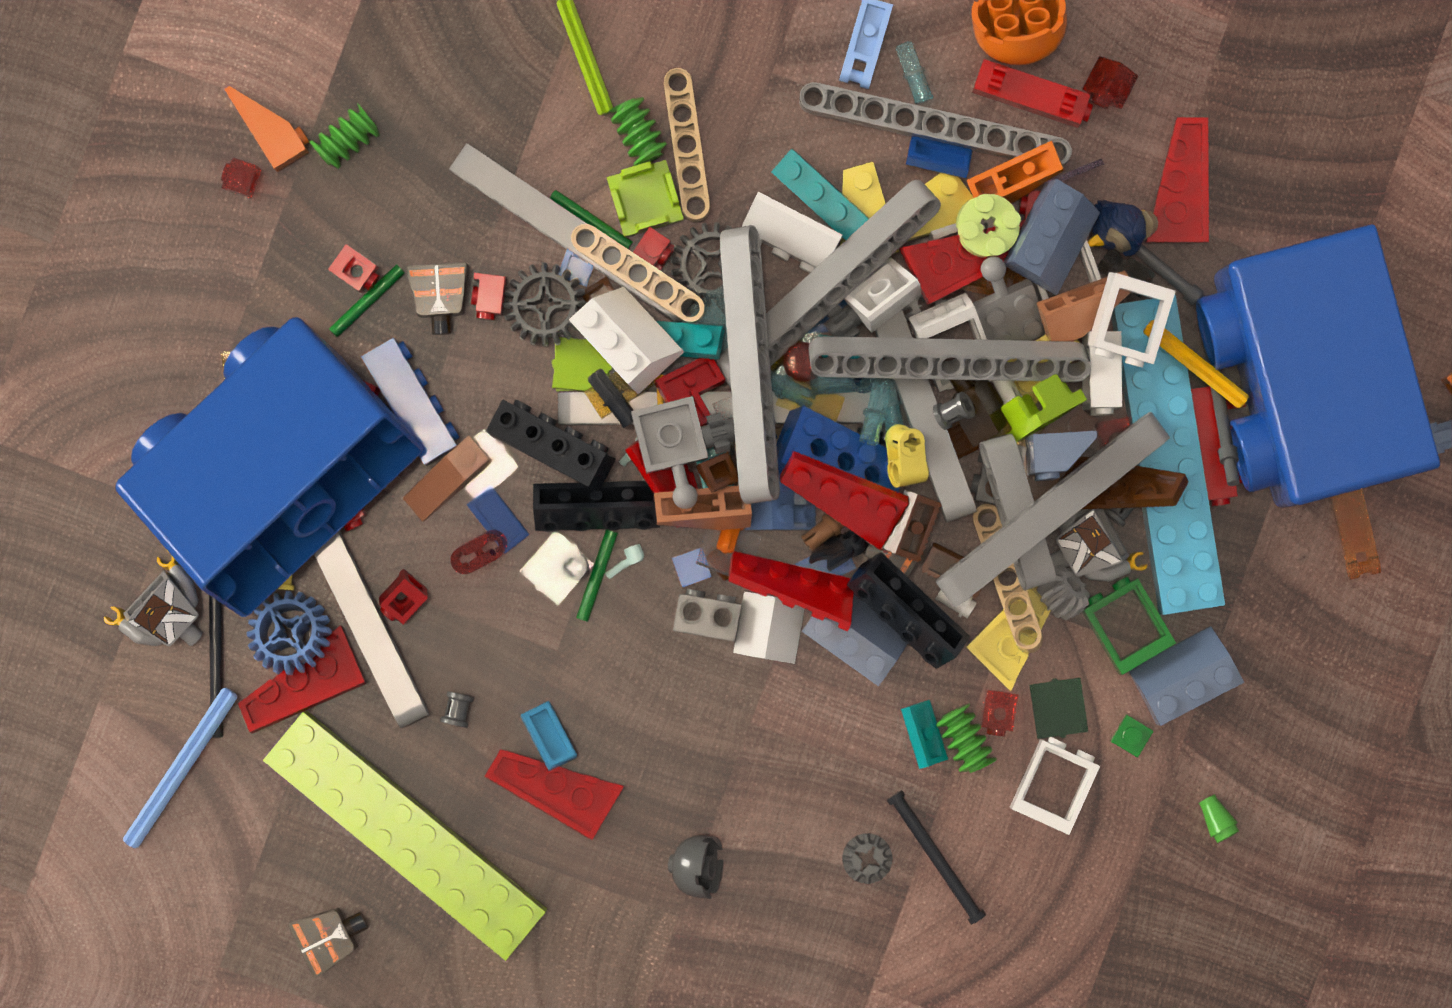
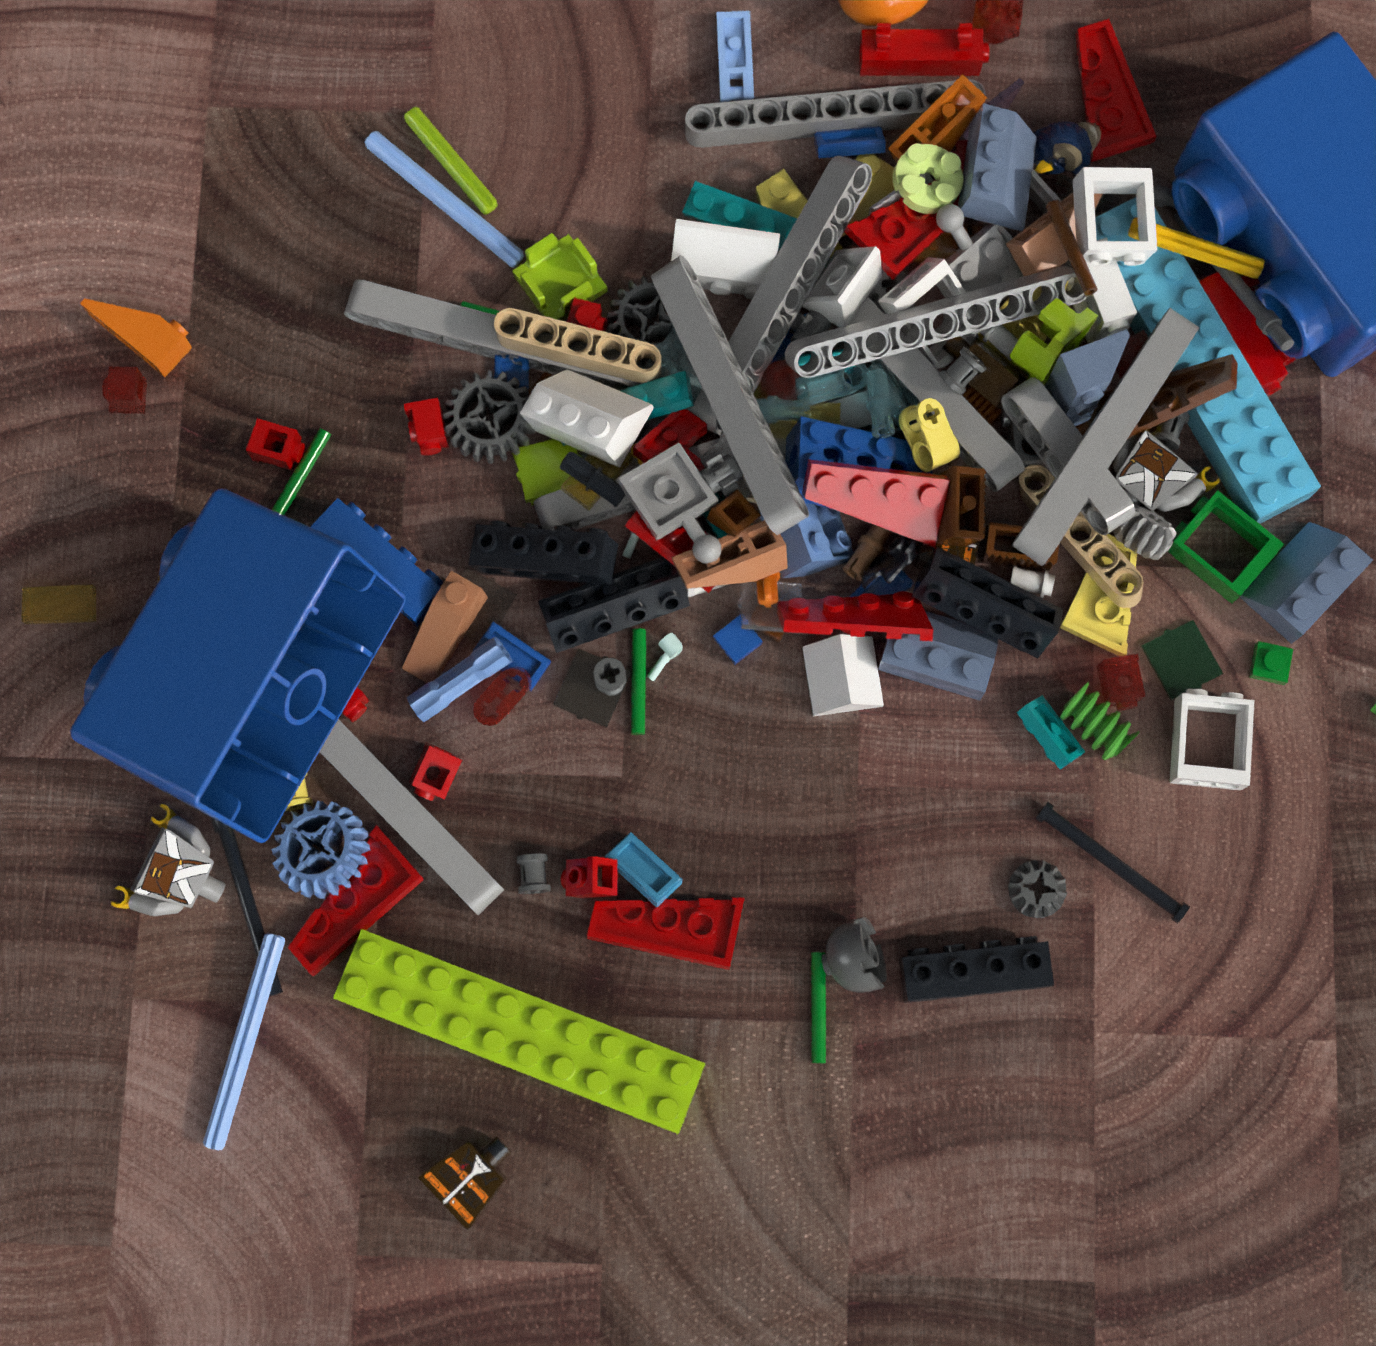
camera: 15 degrees left, 10 degrees down
(131, 347) = (58, 604): none -> clear yellow tile
(345, 137) = (223, 314): bright green piece -> none
(439, 292) = (373, 439): torso -> none
(458, 524) = (459, 679): none -> medium blue axle
(495, 727) = (581, 877): none -> red brick
(568, 89) = (444, 199): none -> light blue axle
(637, 130) = (528, 212): bright green piece -> none
(653, 896) = (818, 1009): none -> green bar
(682, 130) = (582, 197): tan beam -> none
(705, 624) = (775, 693): brick -> none
(790, 909) = (976, 971): none -> black brick
(913, 72) = (793, 70): clear light blue axle -> none
(1084, 347) = (1071, 247): none -> reddish brown piece

